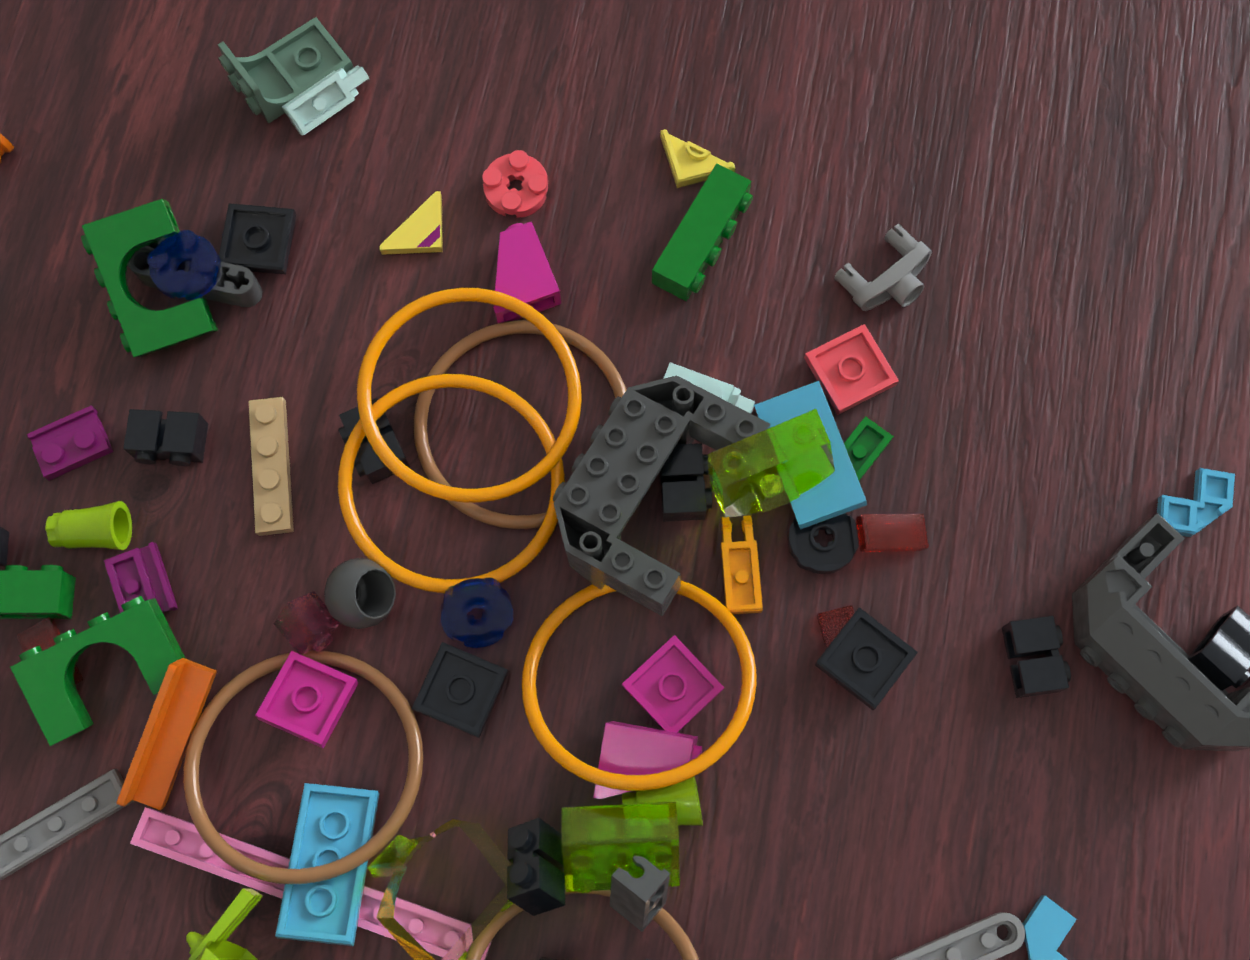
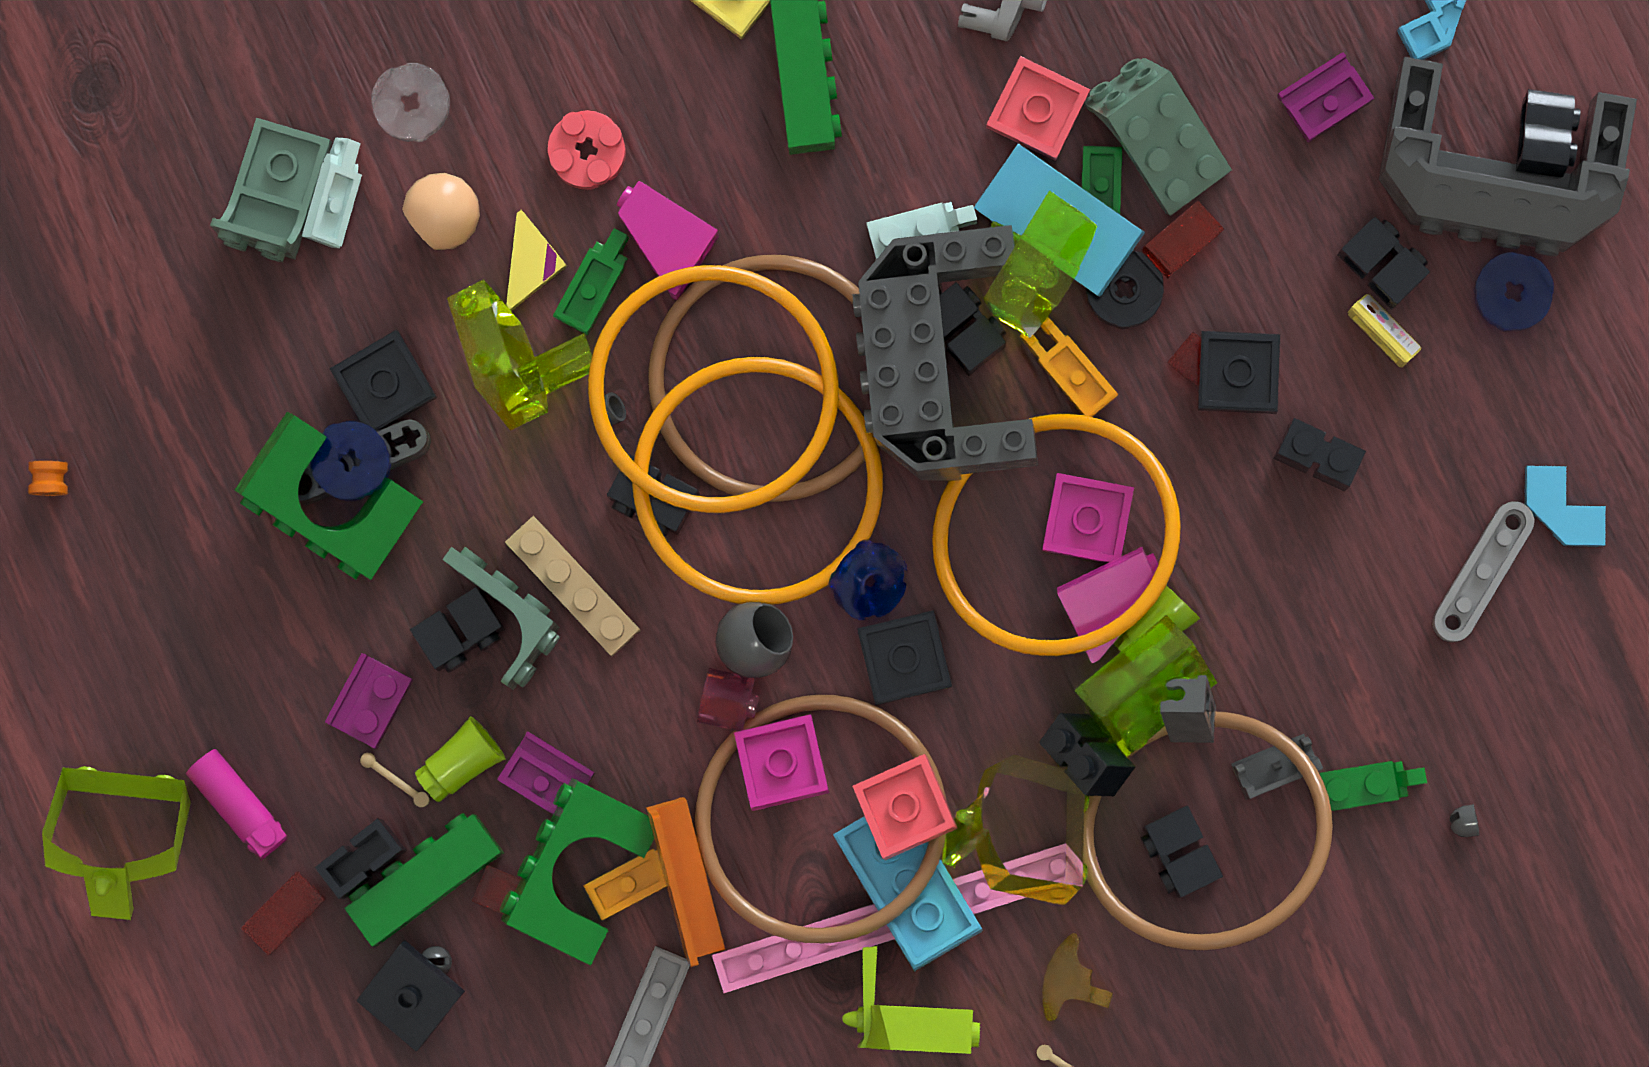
camera: 30 degrees left, 10 degrees up
(35, 483) = (421, 799): none -> tan hinge
(122, 705) = (626, 884): none -> light orange hinge
(215, 465) = (536, 628): none -> sand green bracket
(361, 274) = (503, 358): none -> clear neon green piece
(366, 802) = (904, 807): none -> coral plate
(383, 150) = (442, 210): none -> light nougat helmet
(400, 363) = (615, 408): none -> dark grey hinge
(429, 92) = (404, 81): none -> clear plate
(451, 270) = (593, 283): none -> green hinge
(895, 778) = (1306, 444): none -> black piece
(929, 447) = (1159, 132): none -> sand green bracket
(999, 708) = (1384, 330): none -> light yellow slope
(1072, 506) = (1325, 97): none -> magenta plate
(1139, 737) = (1517, 269): none -> clear blue plate

